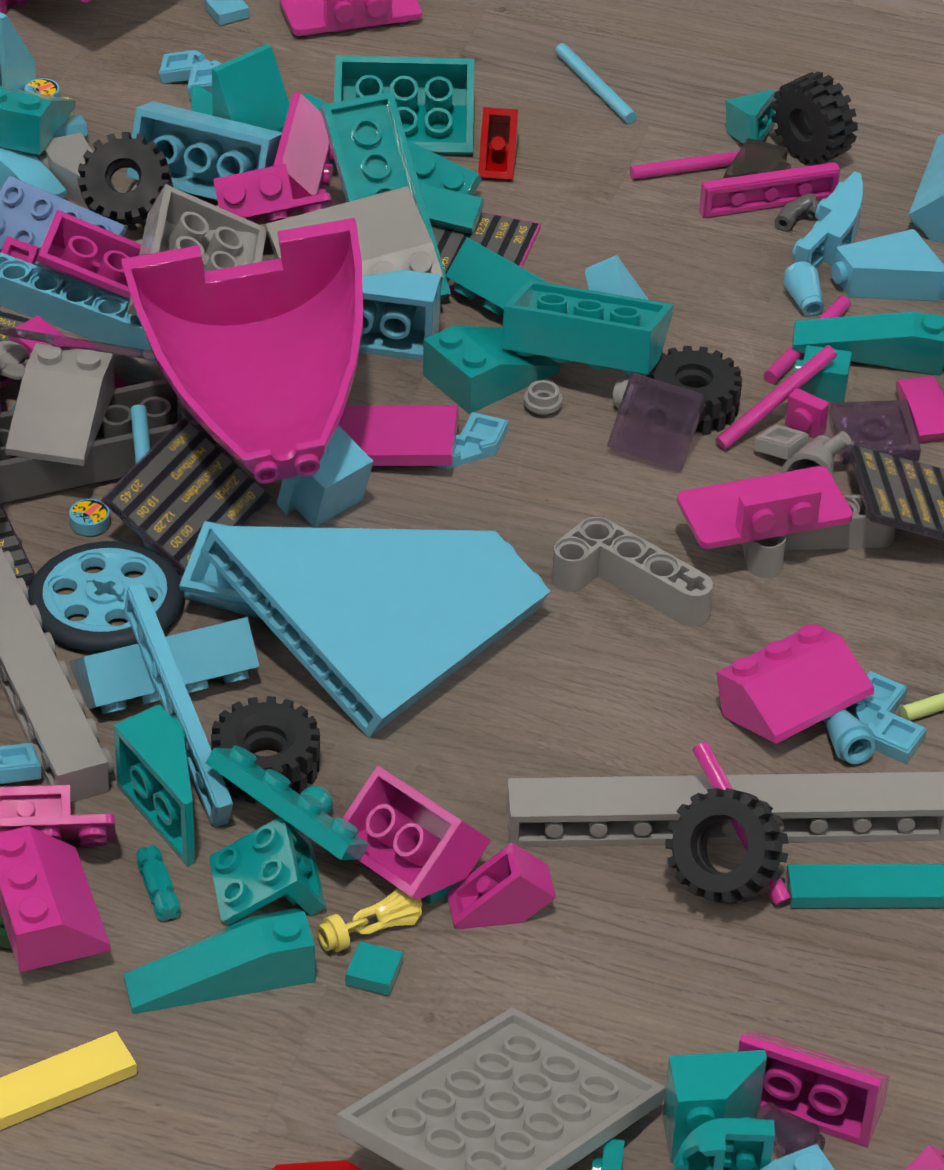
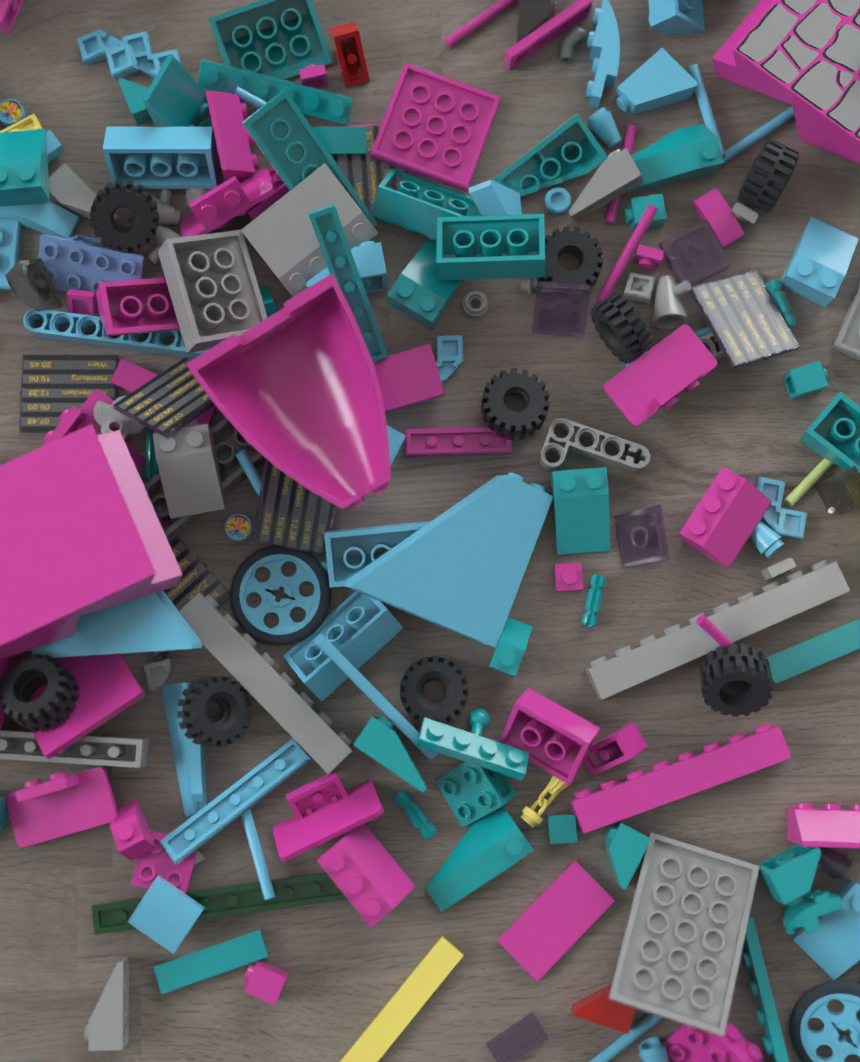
camera: 20 degrees left, 40 degrees up
(302, 1074) = (555, 920): none -> dark pink tile
(378, 254) = (344, 270): none -> teal plate
(399, 740) = (510, 647): none -> teal slope
(413, 511) = (456, 442): none -> dark pink tile
(442, 145) = (314, 76): none -> dark pink plate
(461, 1005) = (625, 851): none -> teal slope
(532, 698) = (568, 577): none -> dark pink plate
(544, 494) = (509, 421): none -> black tyre
(556, 731) = (593, 600): none -> teal axle
(573, 226) = (435, 127): none -> dark pink tile
(585, 626) = (580, 511): none -> teal slope
(589, 957) = (679, 778): none -> dark pink brick
(662, 680) = (642, 537): none -> clear purple slope
(707, 336) = (557, 201): none -> medium azure tile
(725, 289) = (557, 158): none -> teal wedge
(729, 442) = (621, 328): none -> black tyre
(777, 326) = (610, 181): none -> light grey slope
(855, 761) = (778, 568): none -> light grey tile

